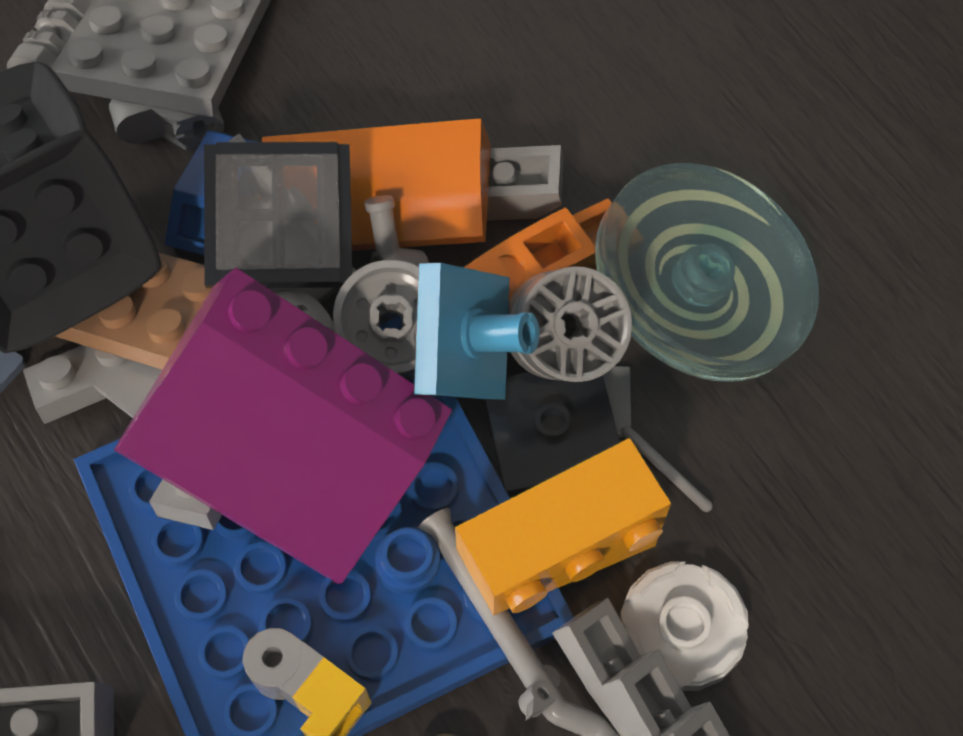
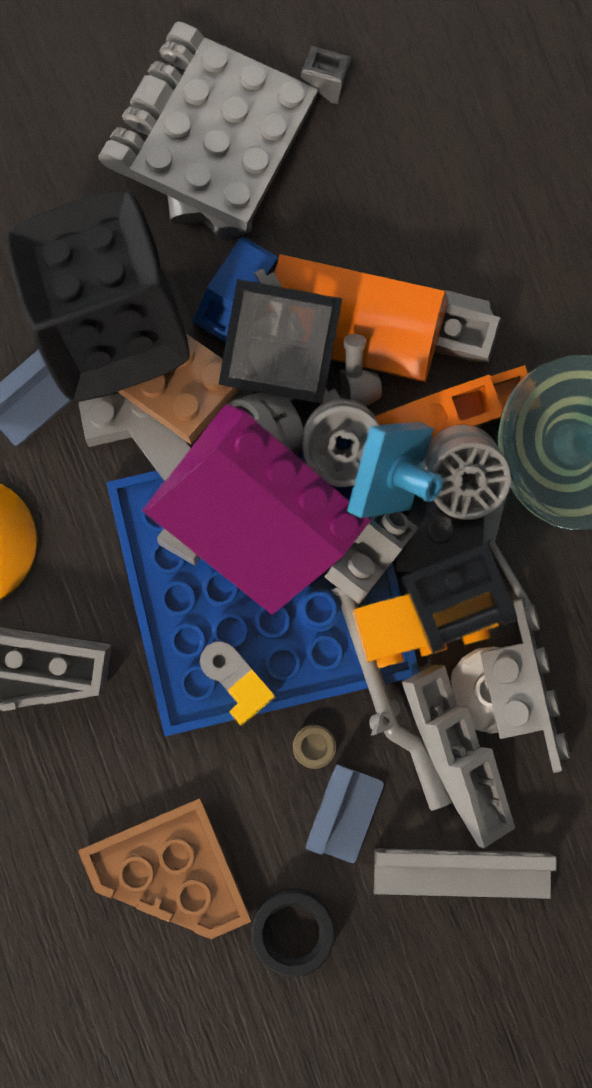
camera: 15 degrees right, 20 degrees up
(465, 462) = (371, 554): none -> light grey slope
(591, 452) = (454, 583): none -> black plate
(723, 609) = (520, 690): none -> light grey bracket

